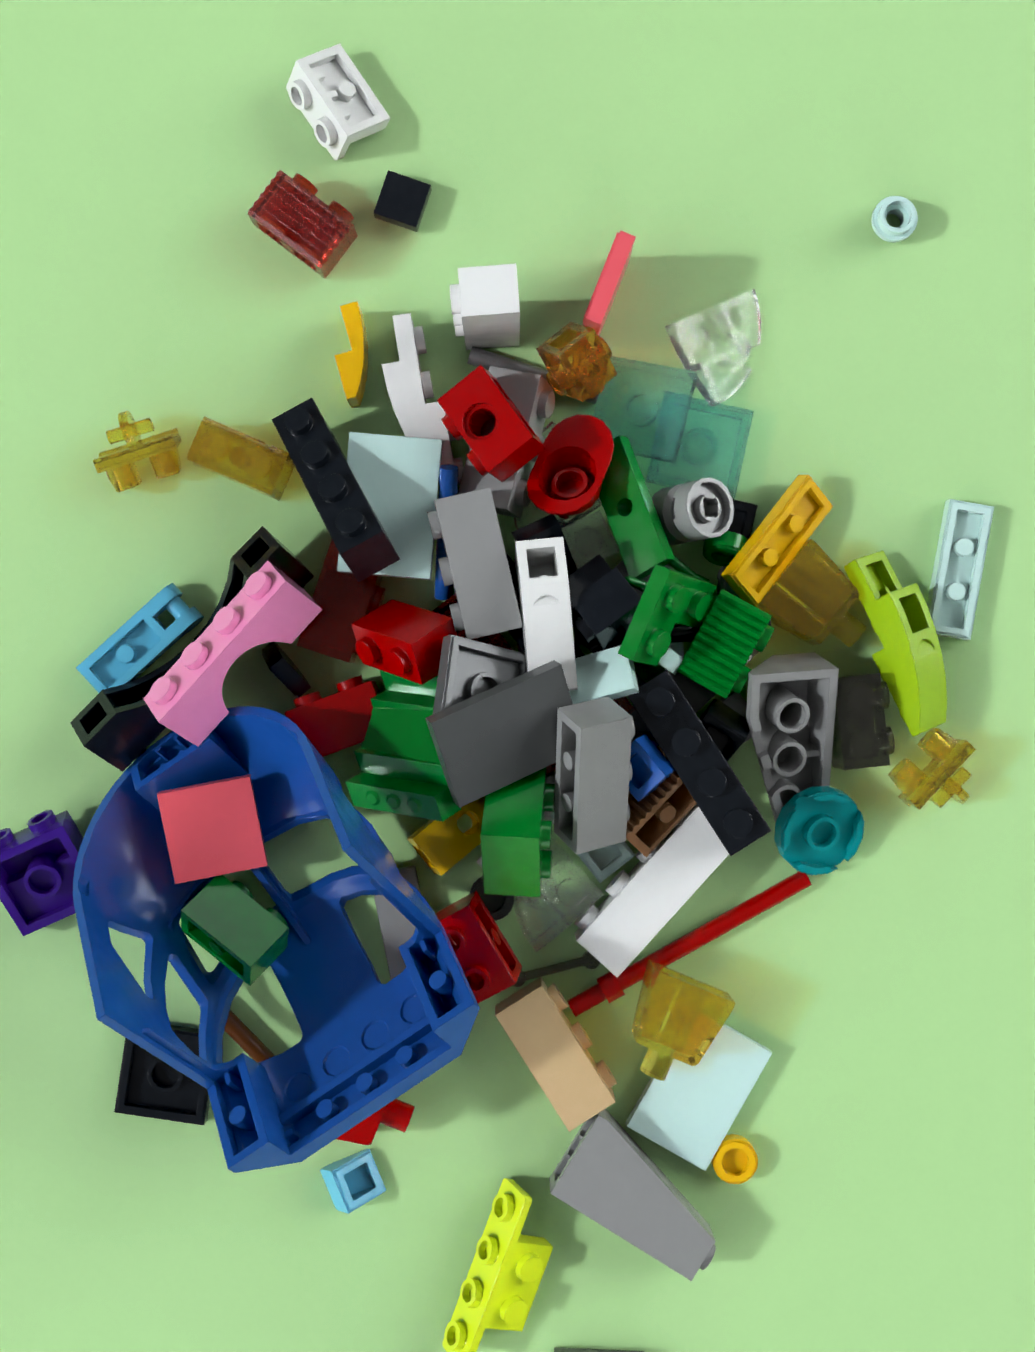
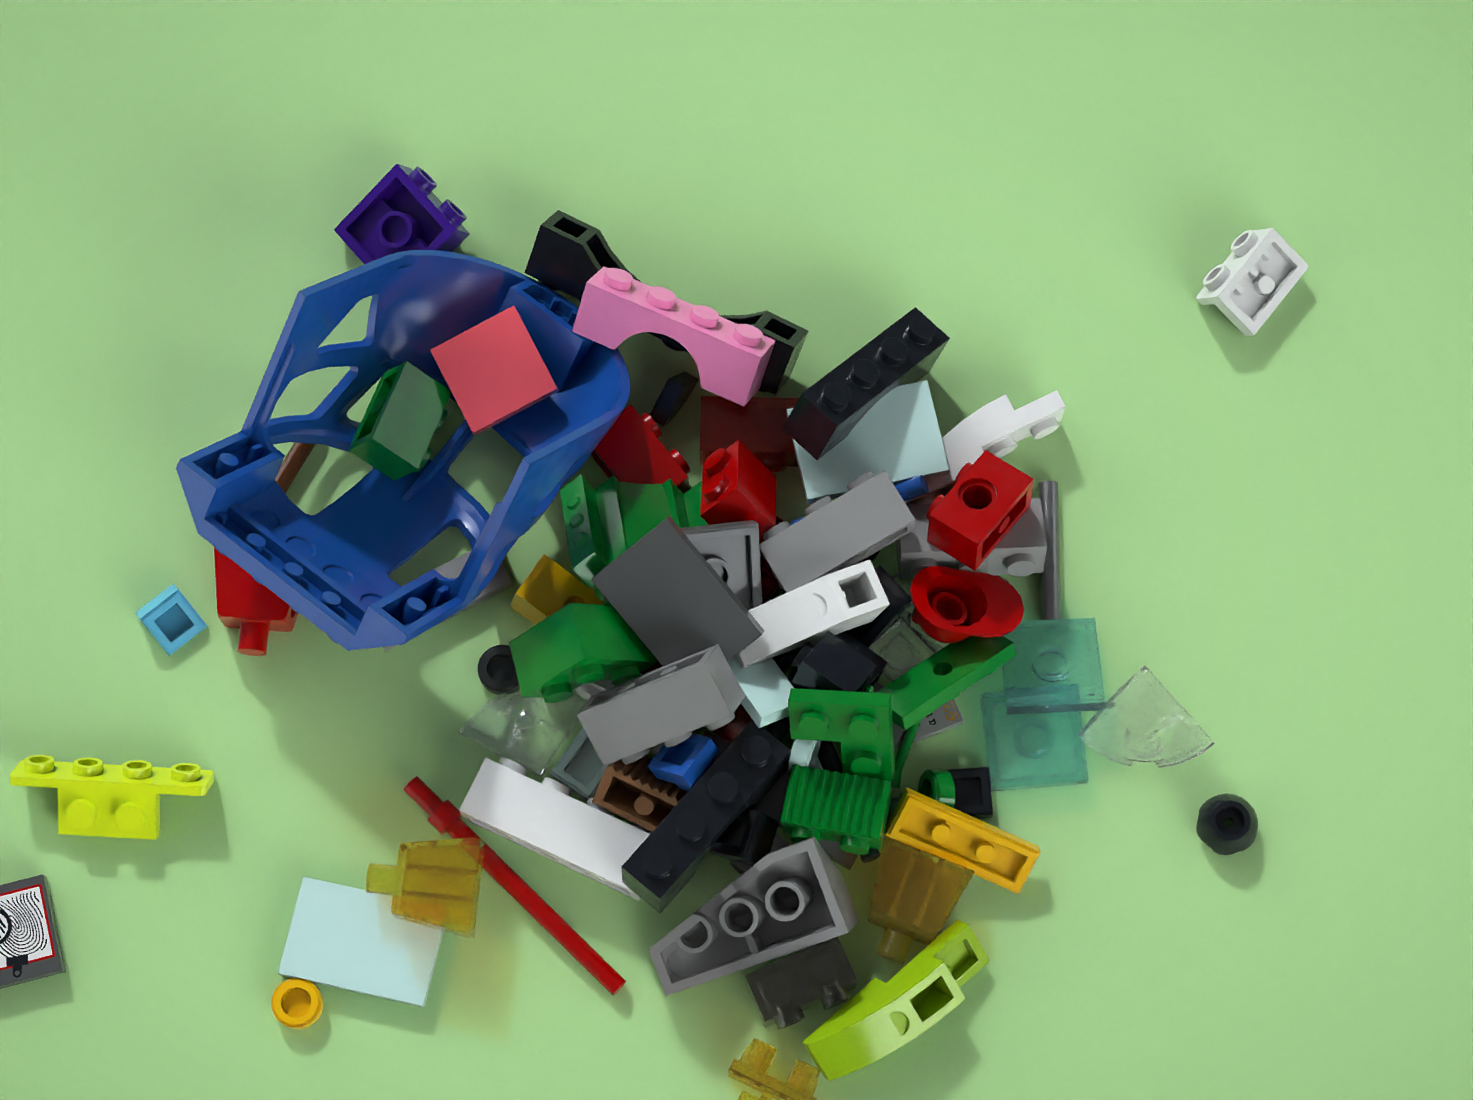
camera: 70 degrees right, 15 degrees down
(120, 461) = (827, 183): clear yellow hips -> none
(140, 641) = (659, 253): medium azure plate -> none
(158, 1090) = (220, 397): black tile -> none
(241, 458) = (867, 291): clear yellow brick -> none
(303, 222) = (1119, 284): clear red brick -> none
(354, 363) = (996, 373): yellow slope -> none
(402, 201) = (1177, 372): black tile -> none
(480, 947) = (445, 662): red brick -> none
(487, 306) = (1094, 473): white brick -> none
(556, 1052) = (362, 778): tan brick -> none
(577, 362) = (1072, 581): clear orange brick -> none
(586, 960) = (426, 720): clear smoke hinge -> none
(609, 281) = (1157, 588): coral tile -> none
(626, 1192) = (233, 899): light grey slope -> none
(694, 510) = (961, 740): light grey wheel -> none
(817, 313) = (1216, 835): none -> black plate
(818, 830) = (673, 980): teal tile -> none
(903, 210) = (1345, 853): light aqua plate -> none
(959, 567) = (996, 1049): light aqua tile -> none

